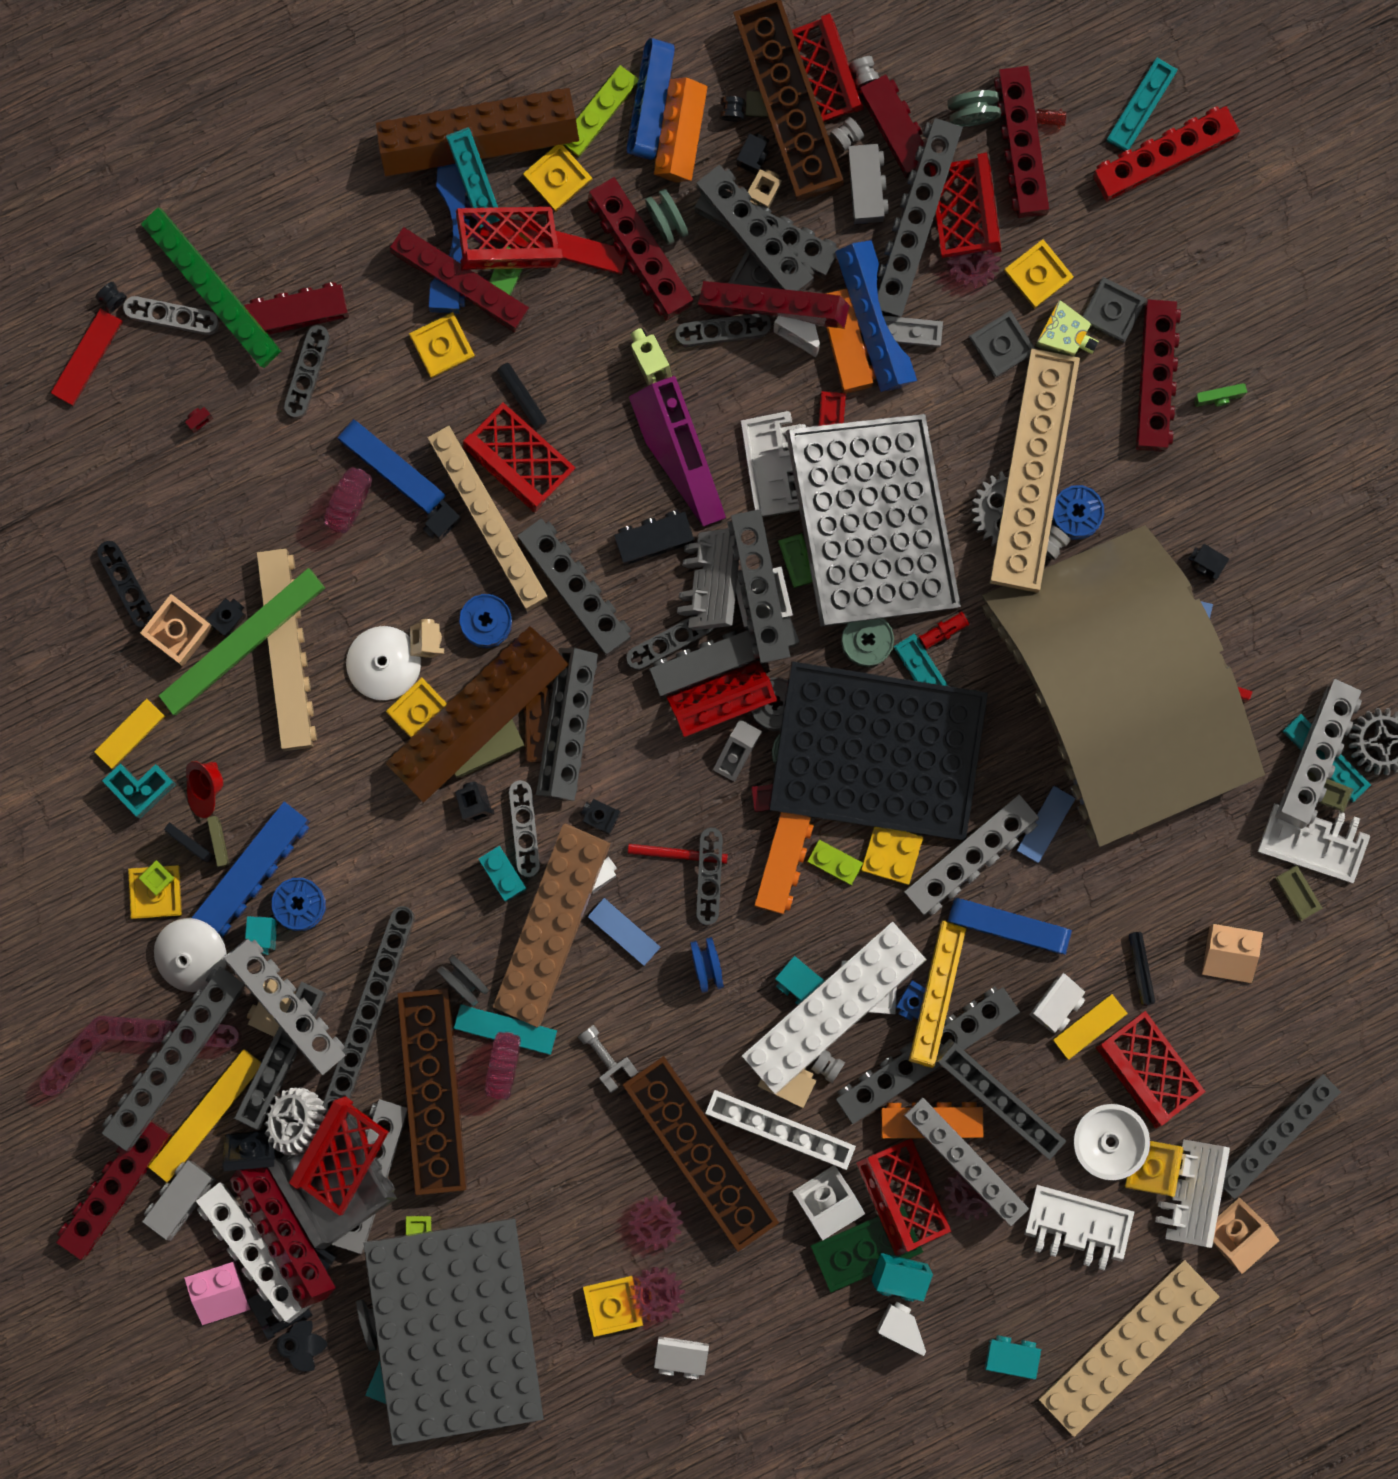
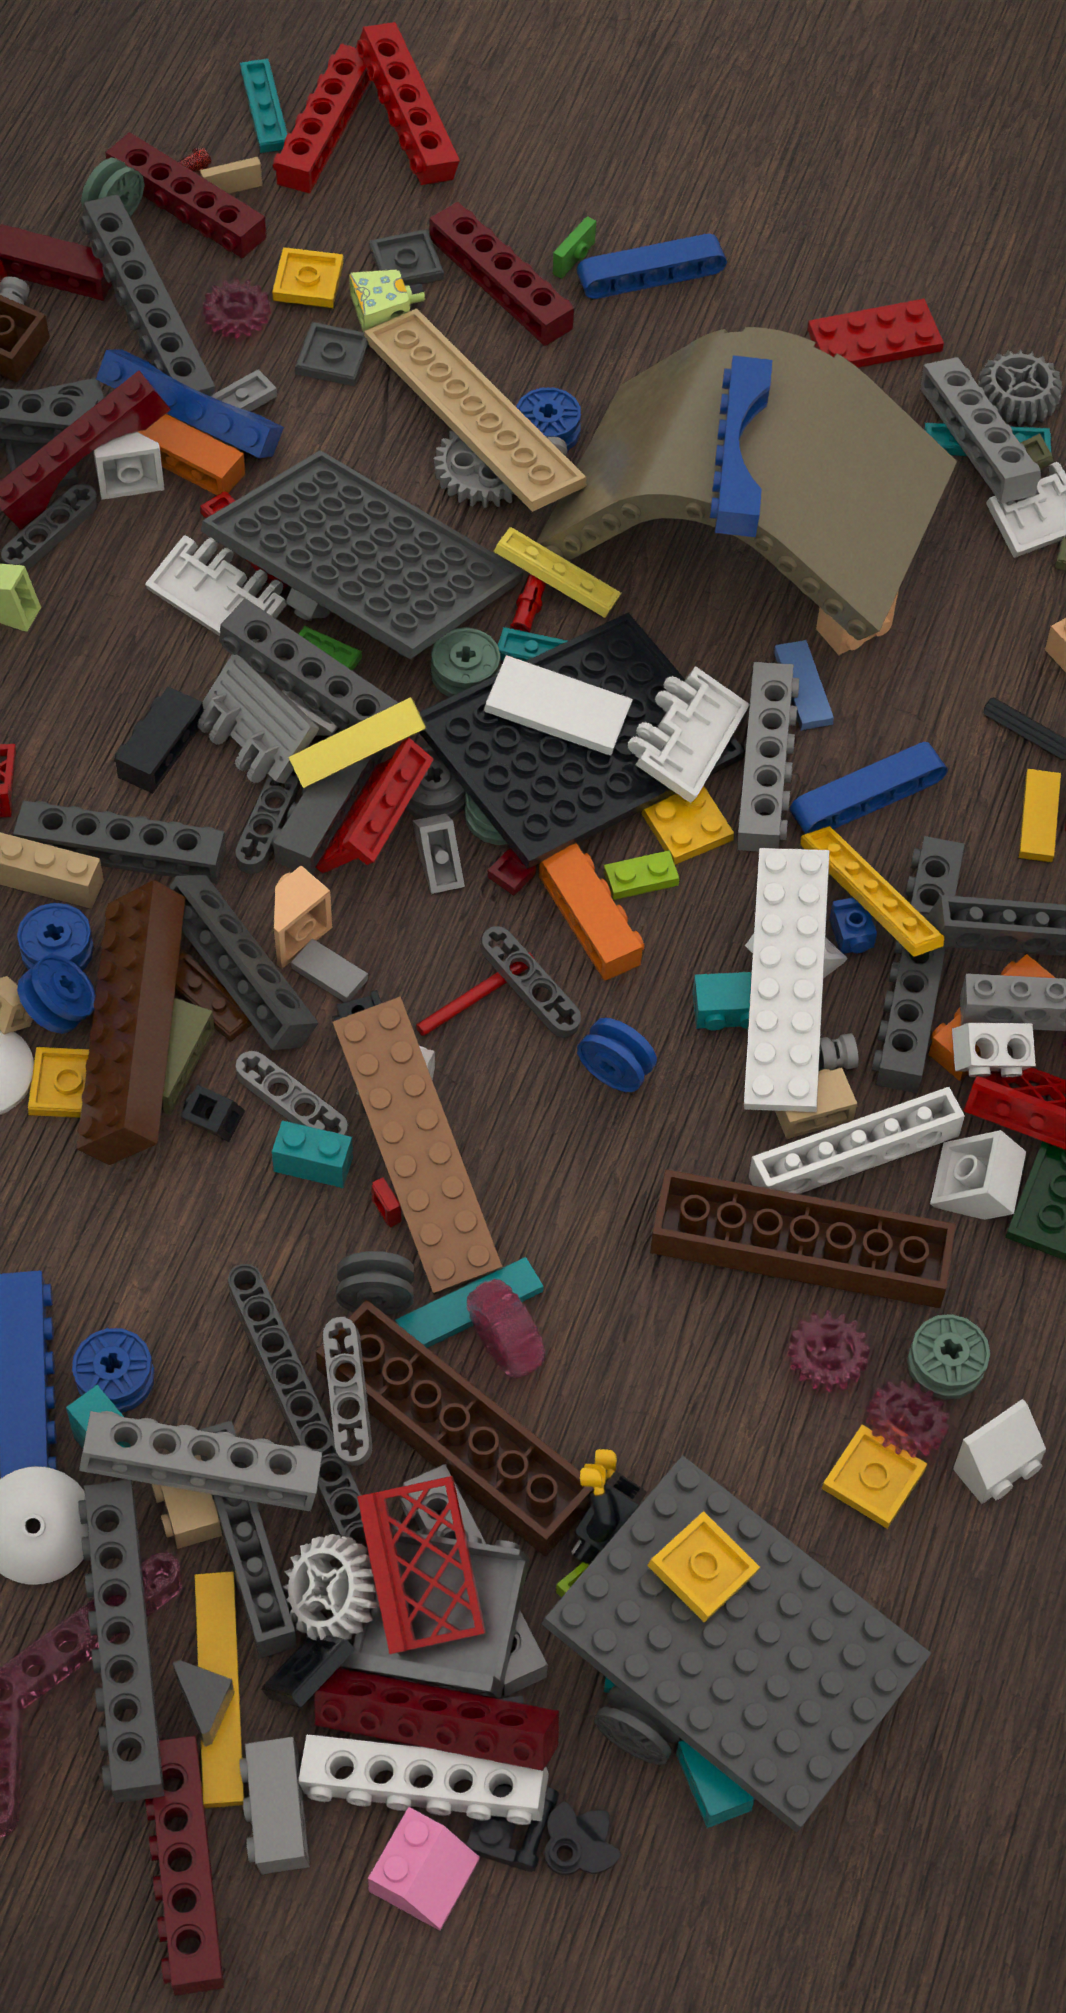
camera: 45 degrees left, 25 degrees down
(190, 1119) = (206, 1697): none -> dark grey slope
(391, 1030) = (350, 1390): none -> light grey beam
(453, 660) = (56, 994): none -> blue wheel
(463, 1207) = (612, 1505): none -> black torso
(463, 1287) = (703, 1566): none -> yellow plate
(514, 936) = (386, 1202): none -> red tile
(590, 1037) = (637, 1228): light grey bar -> none
(614, 769) = (329, 971): none -> light grey tile
(621, 725) = (299, 913): none -> light nougat slope
(624, 932) = (497, 1108): medium blue tile -> none
(676, 447) = (102, 644): magenta wedge -> none
(697, 1286) = (964, 1358): none -> sand green wheel
(742, 654) = (357, 742): none -> light yellow tile
(867, 183) = (73, 321): light grey brick -> none
(881, 724) = (558, 705): none -> white tile
(906, 1142) = (993, 1041): none -> white brick
(941, 809) = (691, 734): none -> white hinge
(975, 627) = (557, 572): none -> light yellow tile
(987, 208) = (199, 252): red fence -> none
(1057, 1003) = (988, 811): white slope -> none
(1060, 723) = (739, 495): none -> blue arch
(1063, 152) = (235, 175): none -> tan tile
(1250, 138) = (407, 103): none -> red brick
(1253, 451) = (651, 266): none -> blue beam
(1339, 623) = (878, 333): none -> red plate

